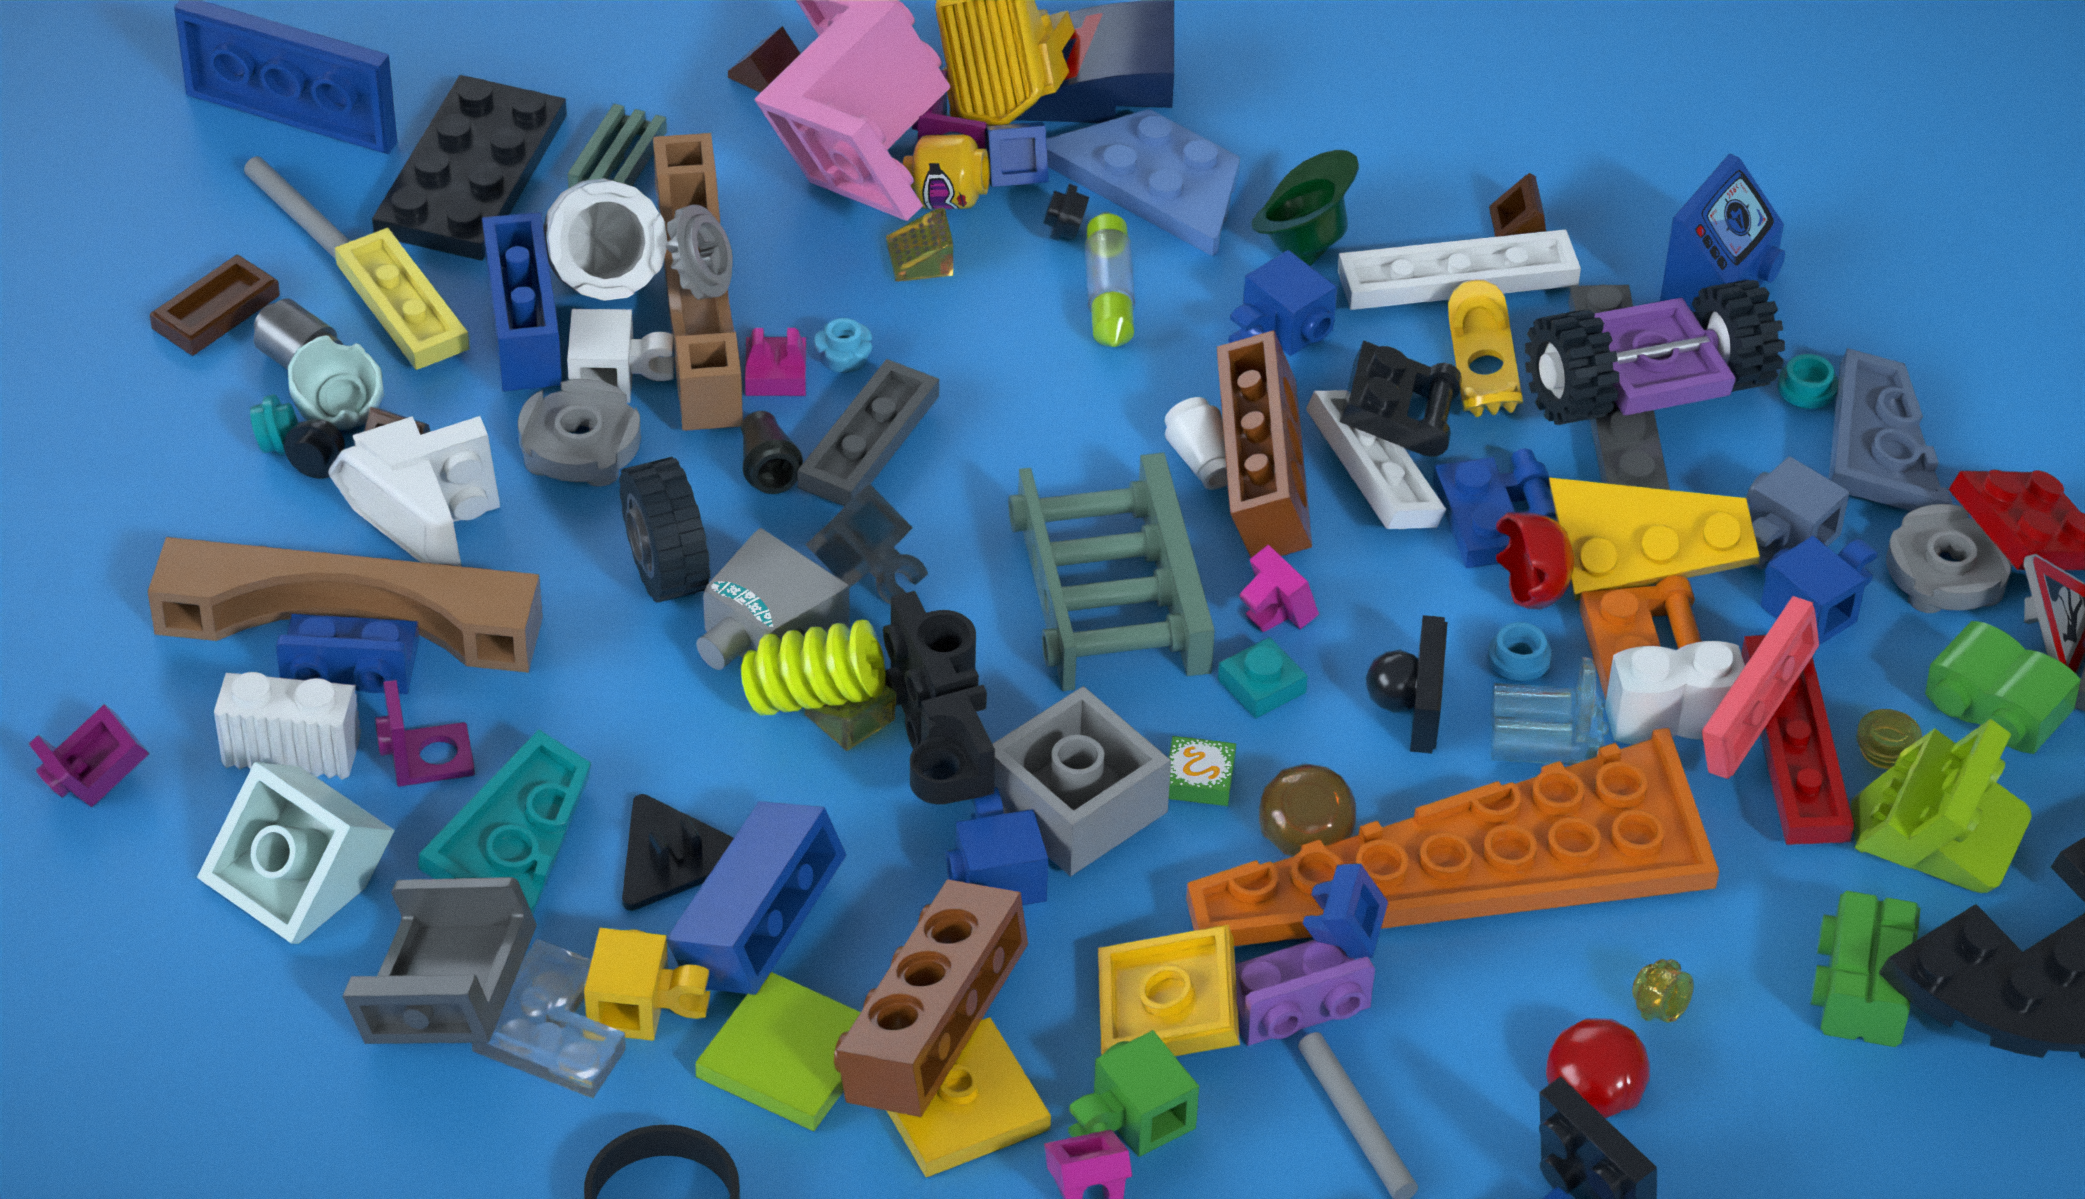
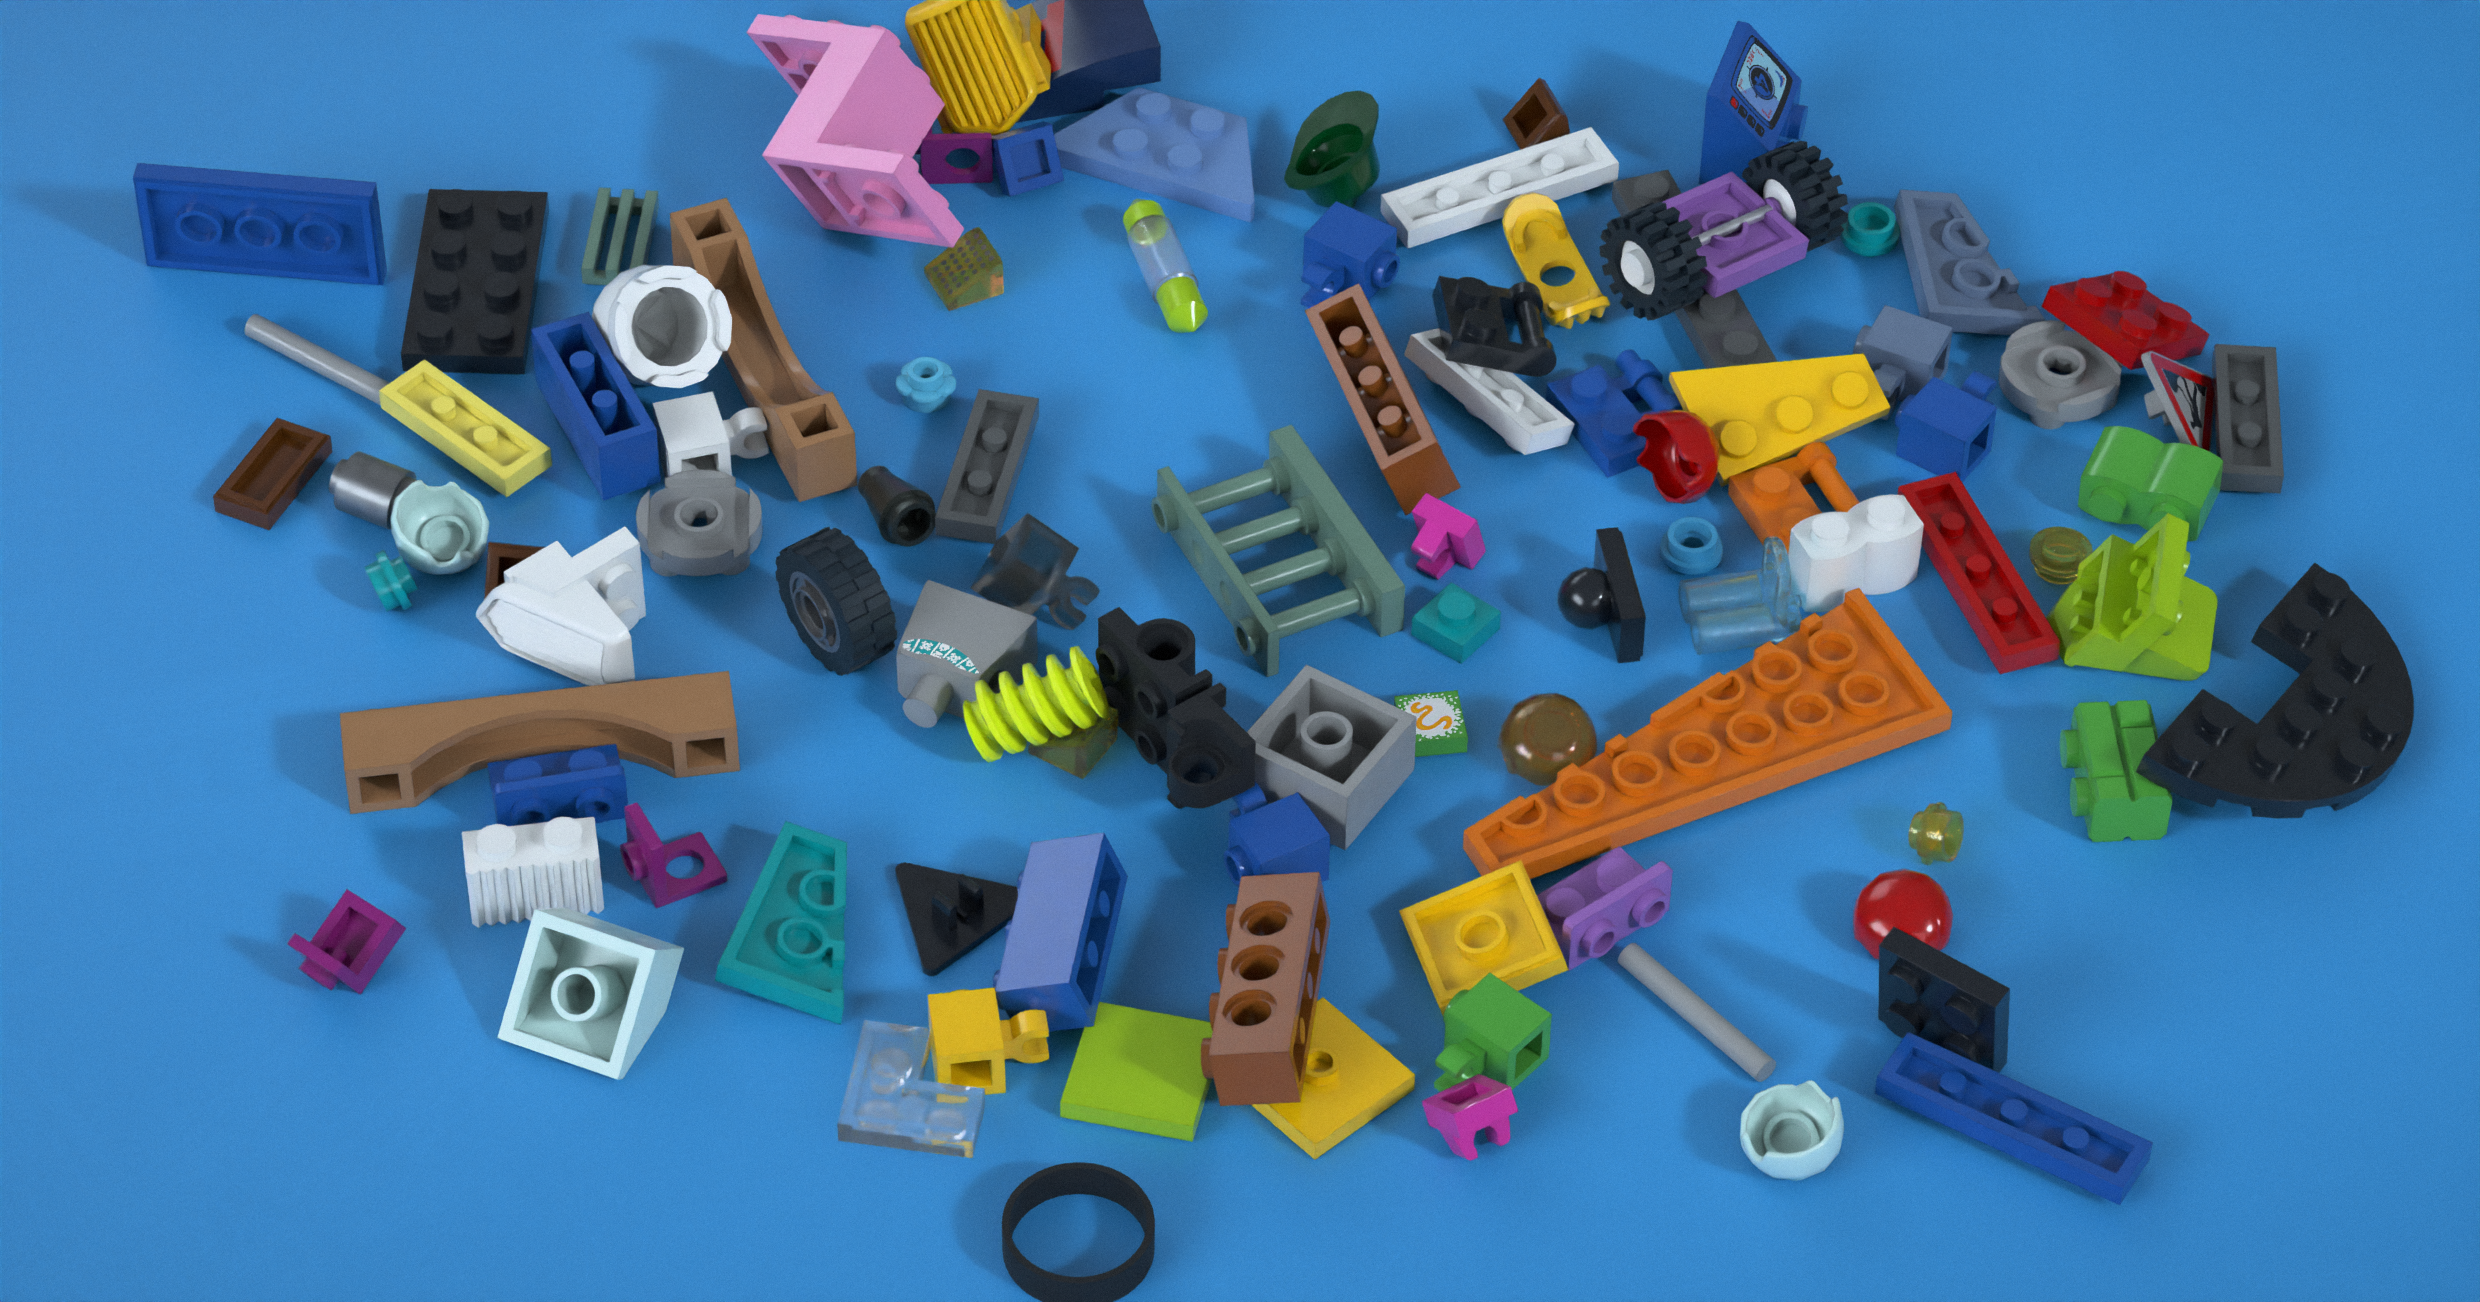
camera: 15 degrees left, 0 degrees up
(313, 447) = (442, 595): black plate -> none
(446, 963) = (786, 1061): dark grey panel -> none
(703, 272) = (764, 320): light grey gear -> none
(765, 61) = (737, 116): reddish brown slope -> none
(775, 364) = (872, 415): dark pink tile -> none
(948, 171) = (971, 186): yellow head -> none
(1066, 213) = (1097, 208): black plate -> none
(1198, 437) = (1315, 407): white cone -> none
(1351, 912) = (1634, 822): blue tile -> none
(1760, 688) = (1937, 531): coral tile -> none

